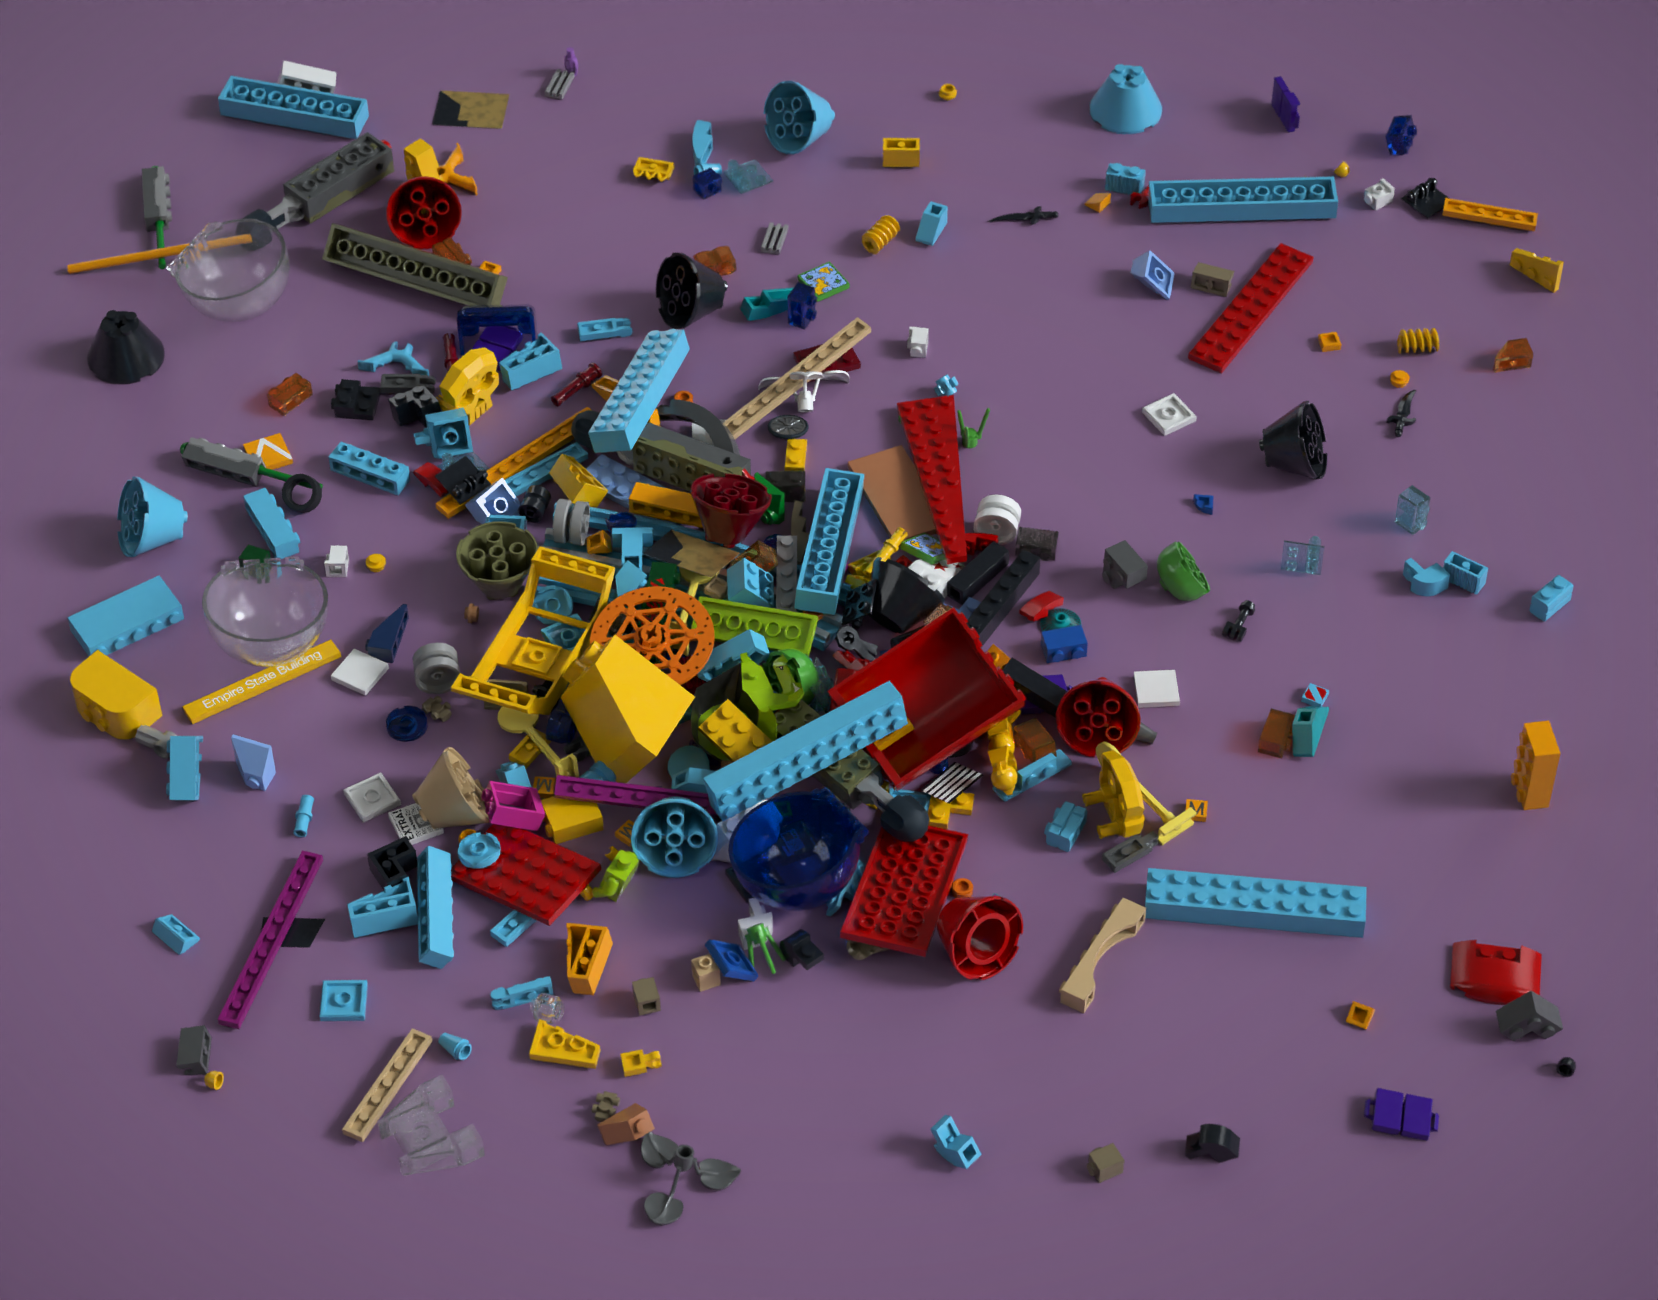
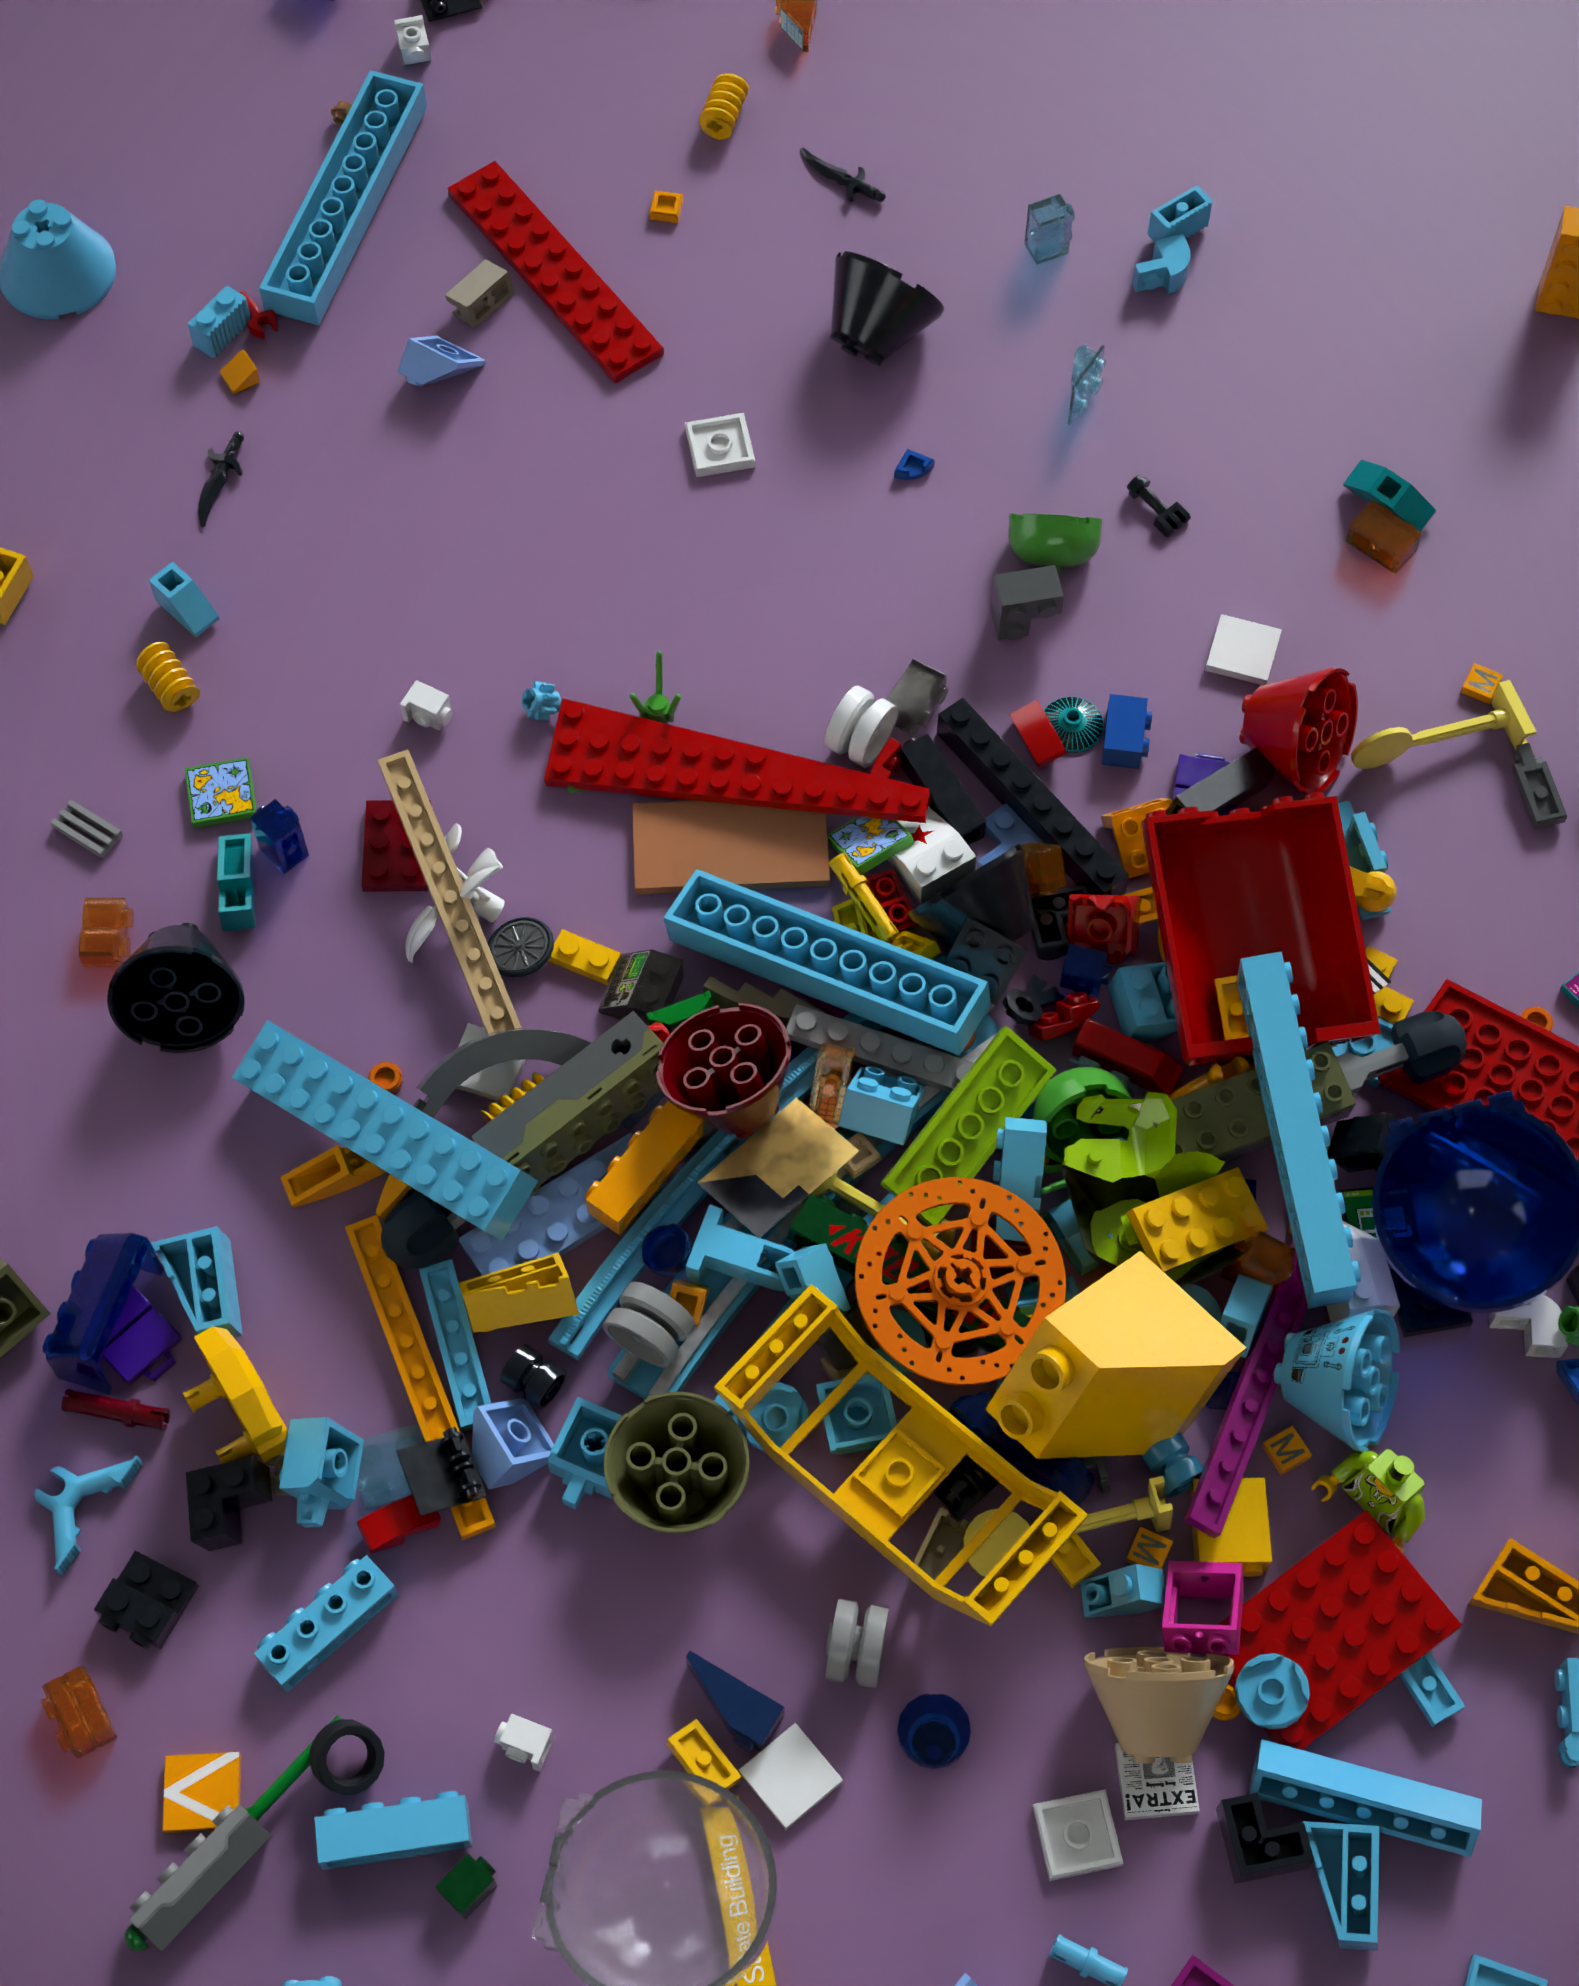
camera: 70 degrees left, 15 degrees up
(353, 632) = (702, 1756): none -> yellow plate
(375, 562) = (549, 1677): yellow plate -> none
(405, 382) = (145, 1504): dark grey hinge -> none
(436, 709) = (918, 1675): dark tan piece -> none
(471, 613) = (736, 1551): medium nougat plate -> none
(582, 379) = (275, 1215): dark red pin -> none
(604, 328) = (169, 1149): medium azure hinge -> none
(1066, 826) = (1469, 849): medium azure brick -> none
(1120, 796) = (1472, 758): yellow brick -> none
(1285, 105) = (186, 72): dark purple piece -> none
(1315, 695) = (1323, 470): medium azure tile -> none
(1342, 170) = (335, 64): yellow hinge -> none
(1399, 378) = (777, 155): light orange plate -> none
(1551, 598) = (1257, 146): medium azure brick -> none

